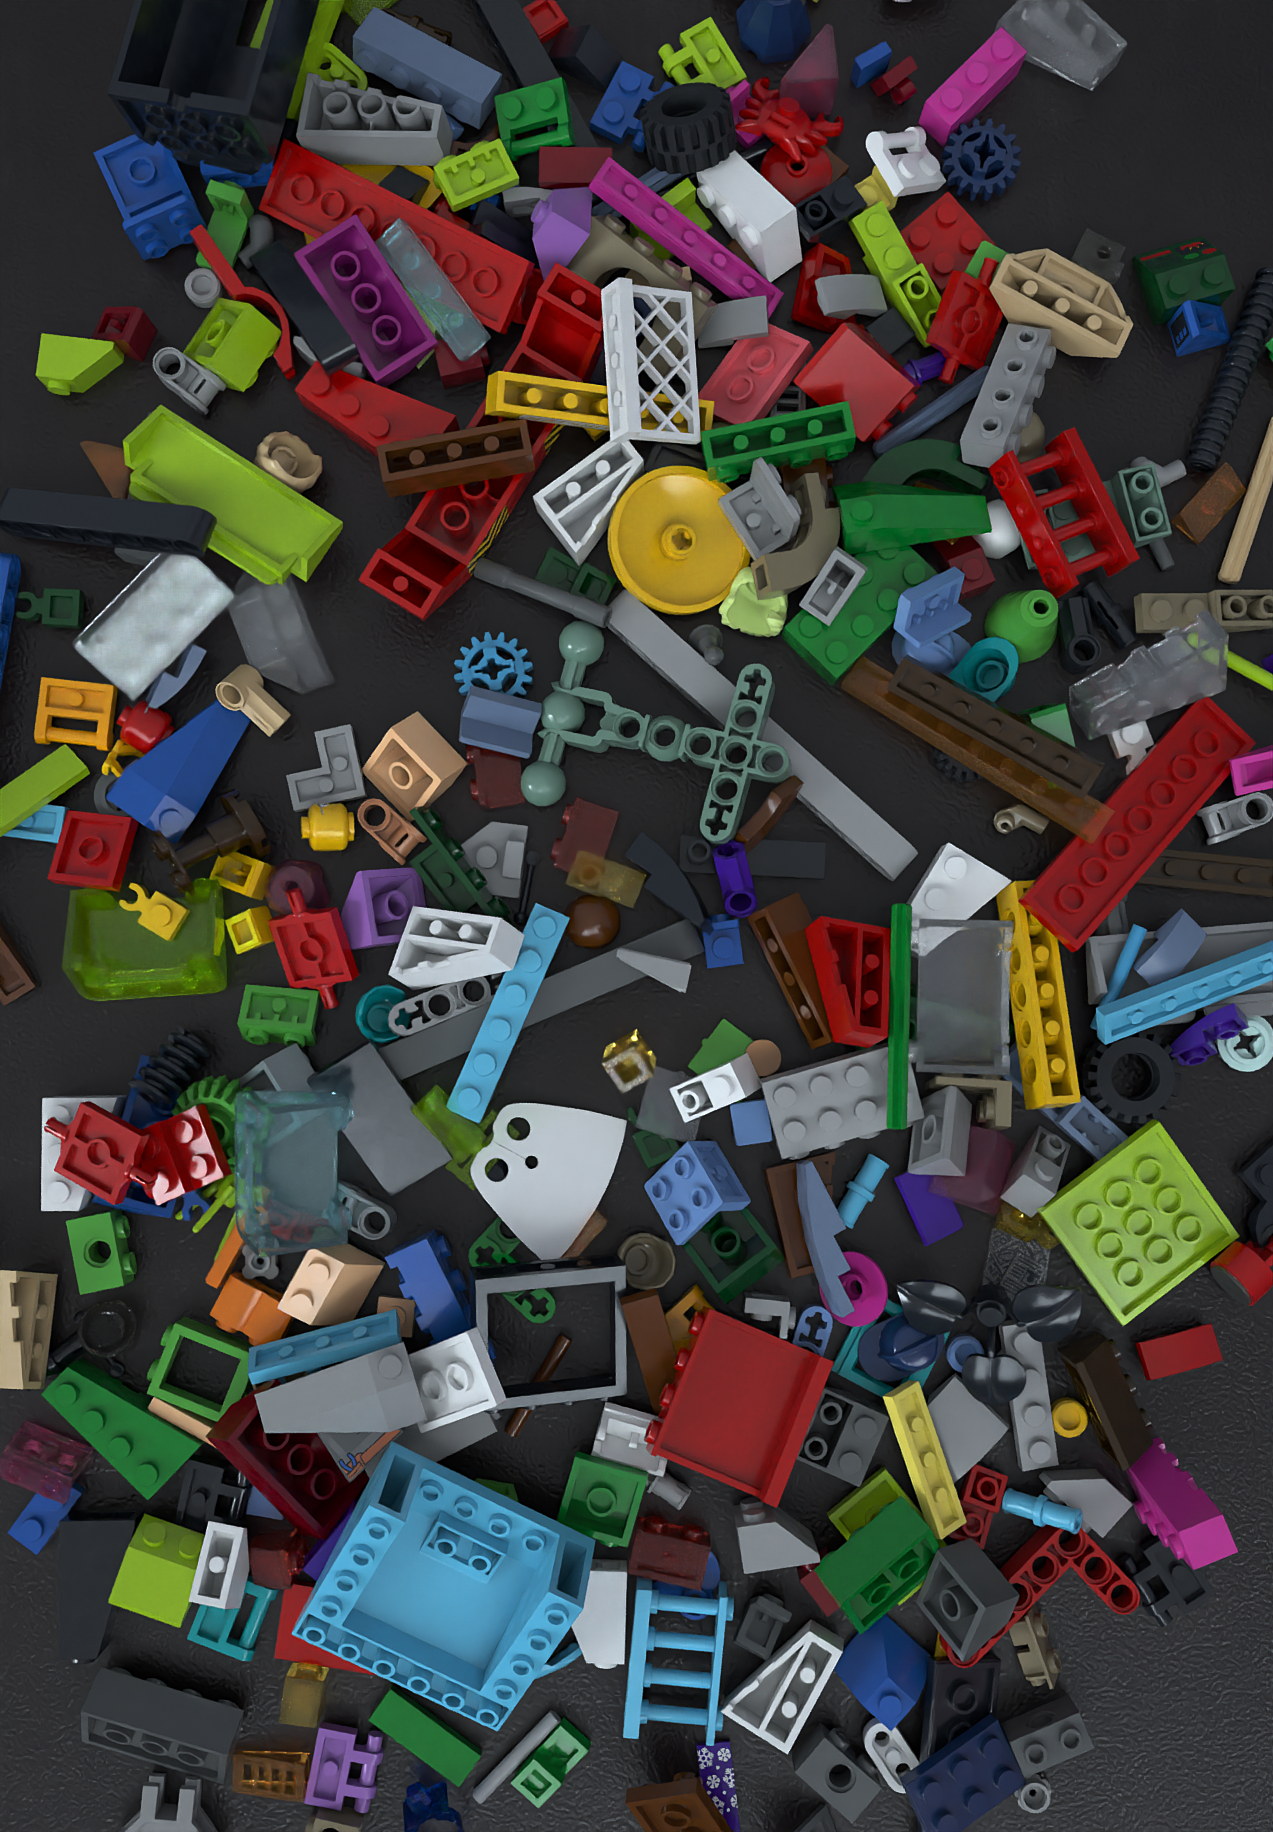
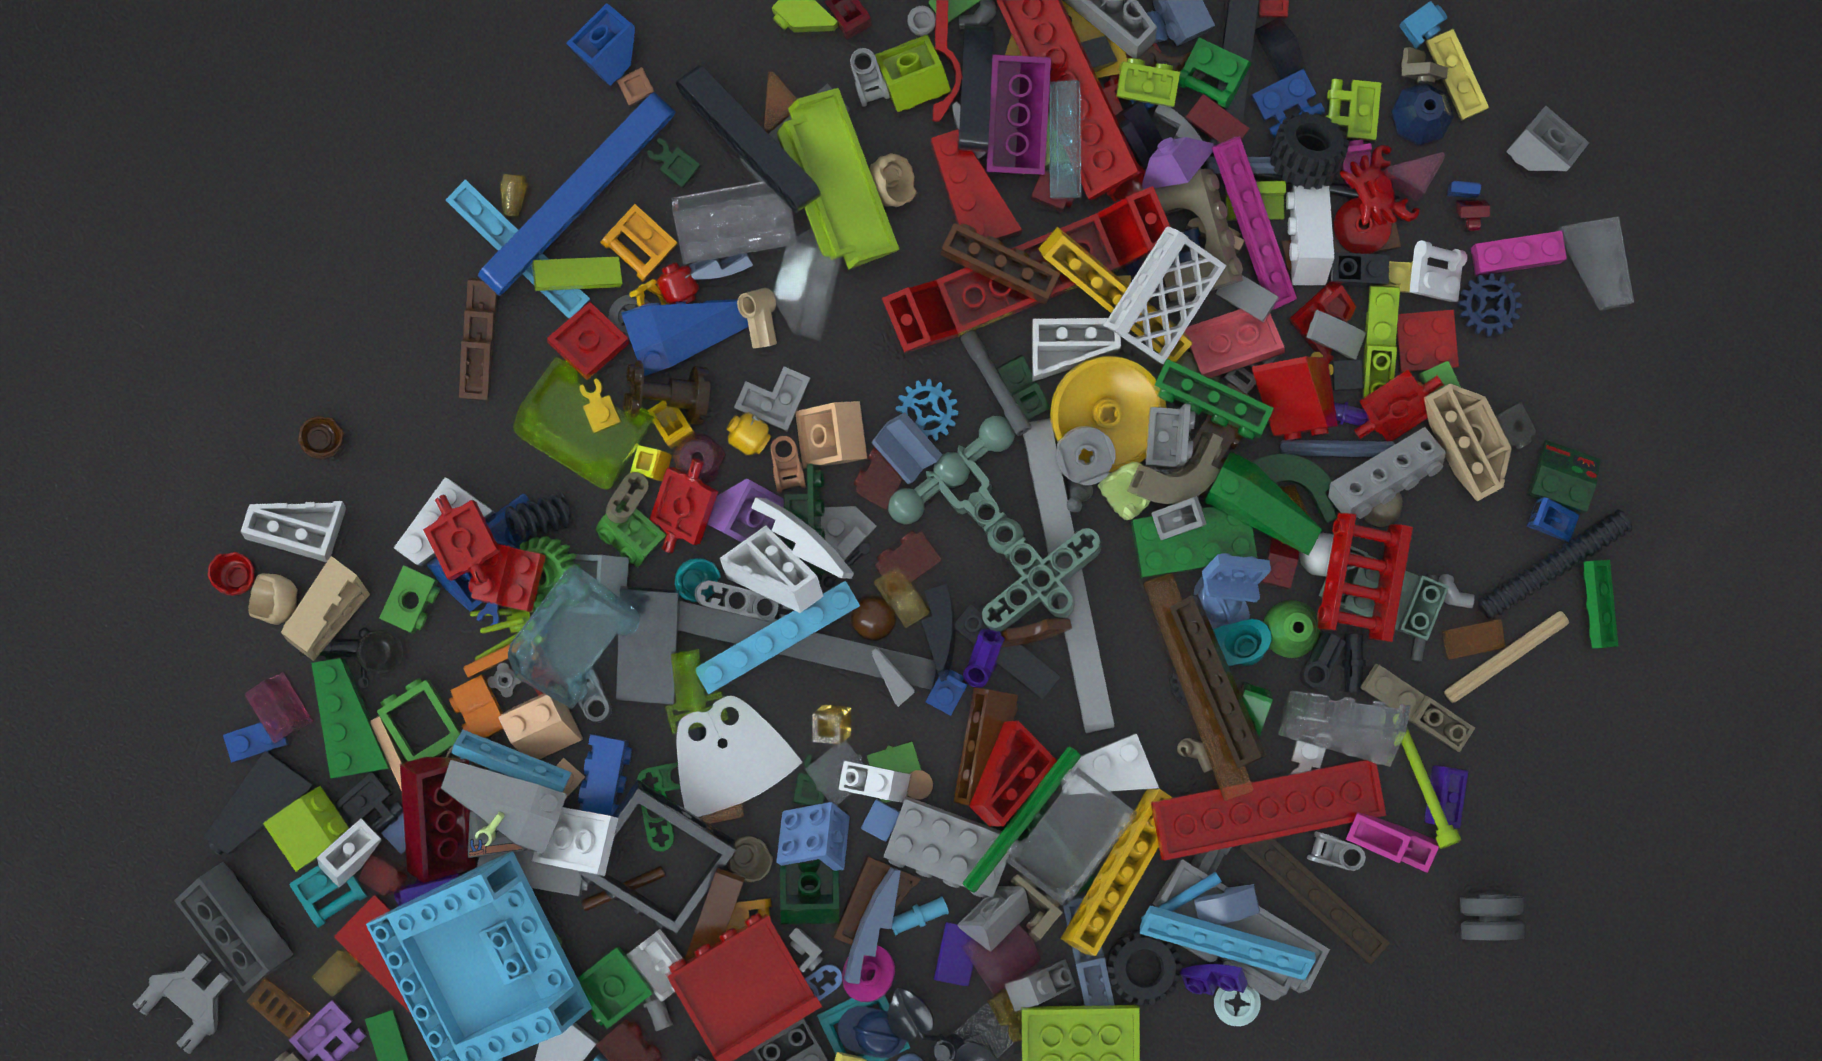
camera: 40 degrees right, 0 degrees up
(242, 982) = (631, 500): none -> dark tan beam
(350, 1438) = (490, 829): none -> yellowish green hand
(469, 891) = (809, 543): none -> white slope
(708, 593) = (1100, 462): none -> light grey plate

